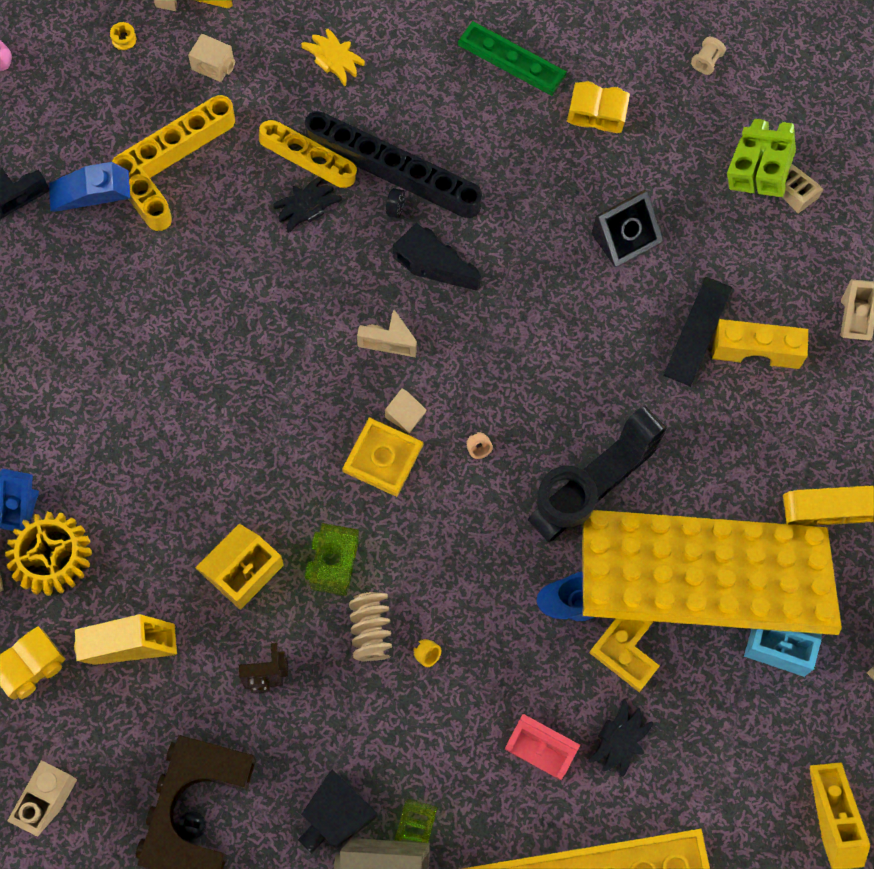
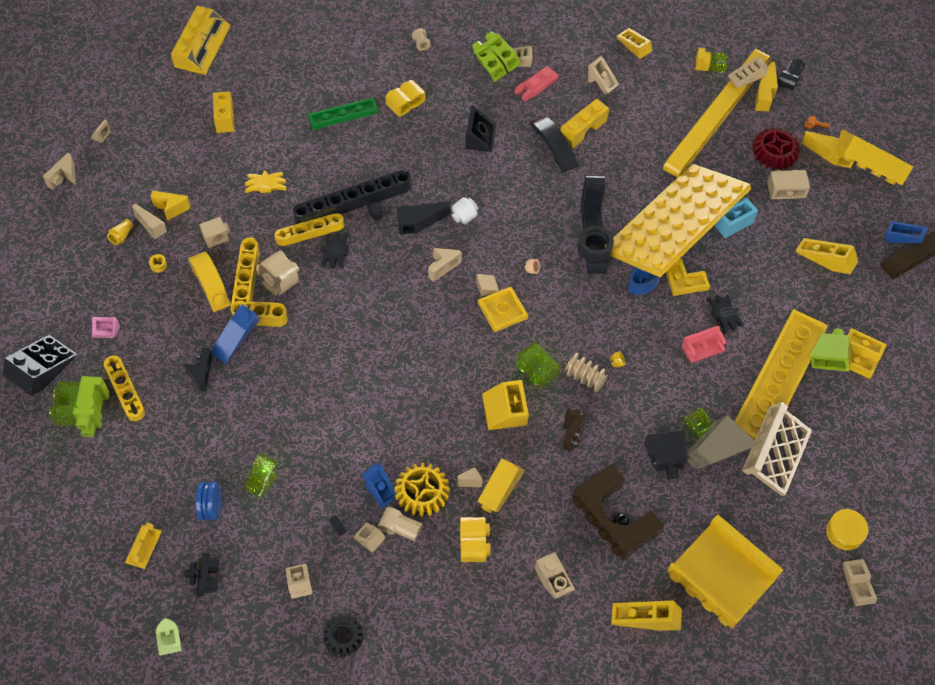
camera: 50 degrees left, 10 degrees down
(108, 597) = (470, 479): none -> tan slope
(134, 100) = (210, 281): none -> yellow arch
(208, 168) = (278, 273): none -> tan brick
(488, 303) = (464, 210): none -> white head
(774, 240) = (537, 83): none -> coral hinge

